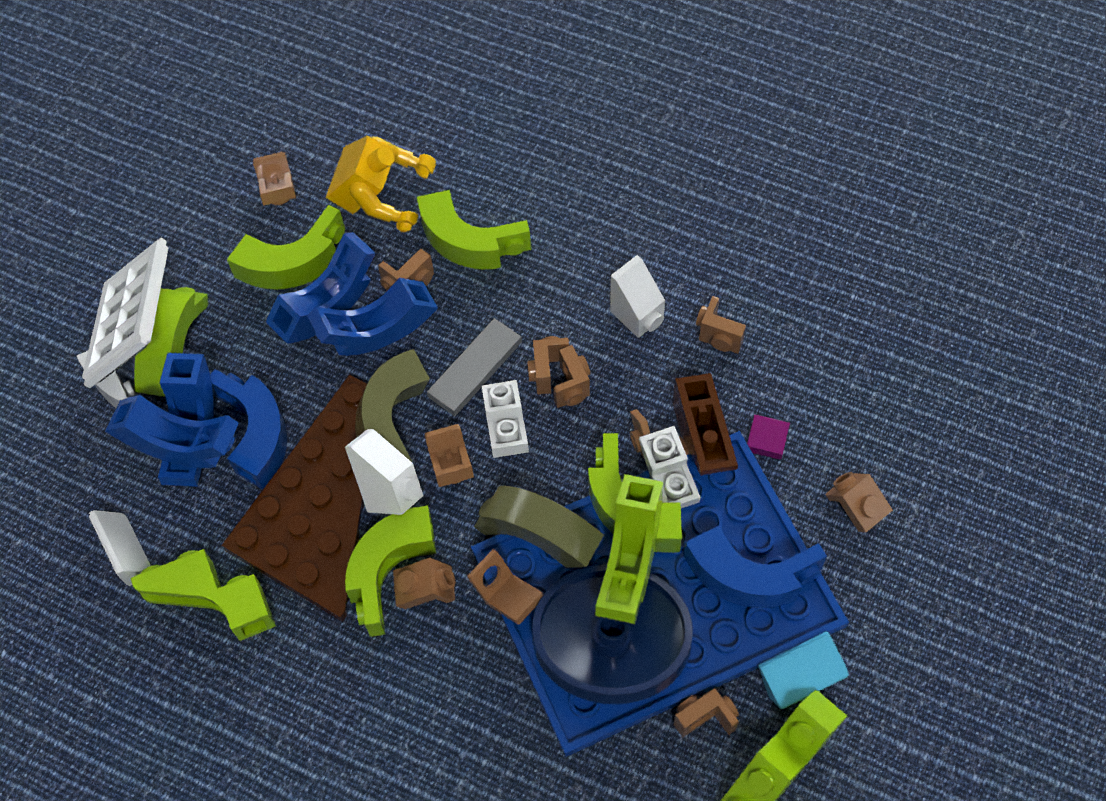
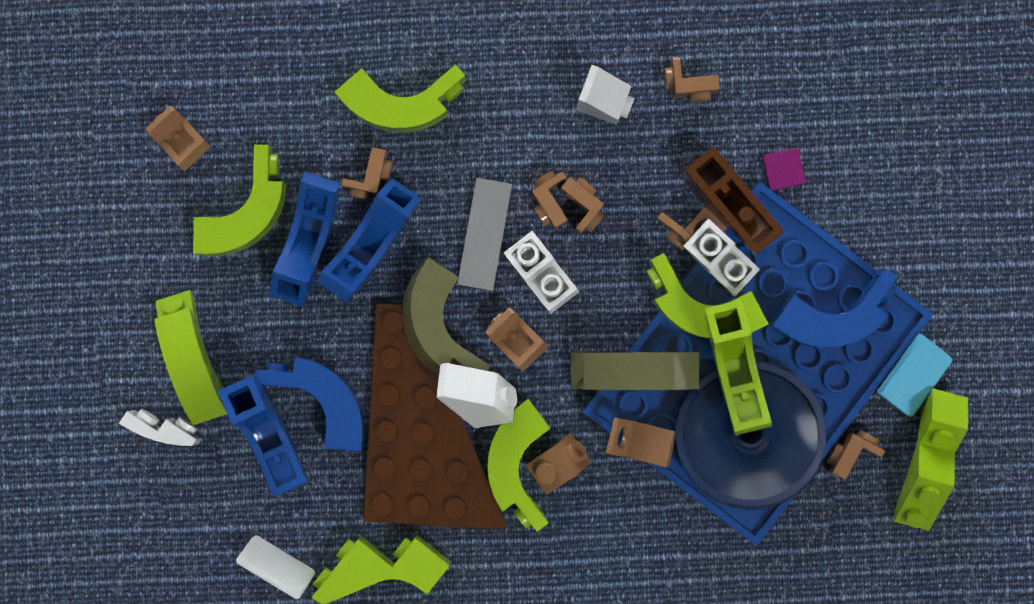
camera: 30 degrees left, 25 degrees up
(126, 314) = (141, 361): white piece -> none
(171, 437) = (269, 458): blue arch -> none
(363, 174) = (266, 90): yellow torso -> none
(860, 499) = (891, 192): medium nougat bracket -> none

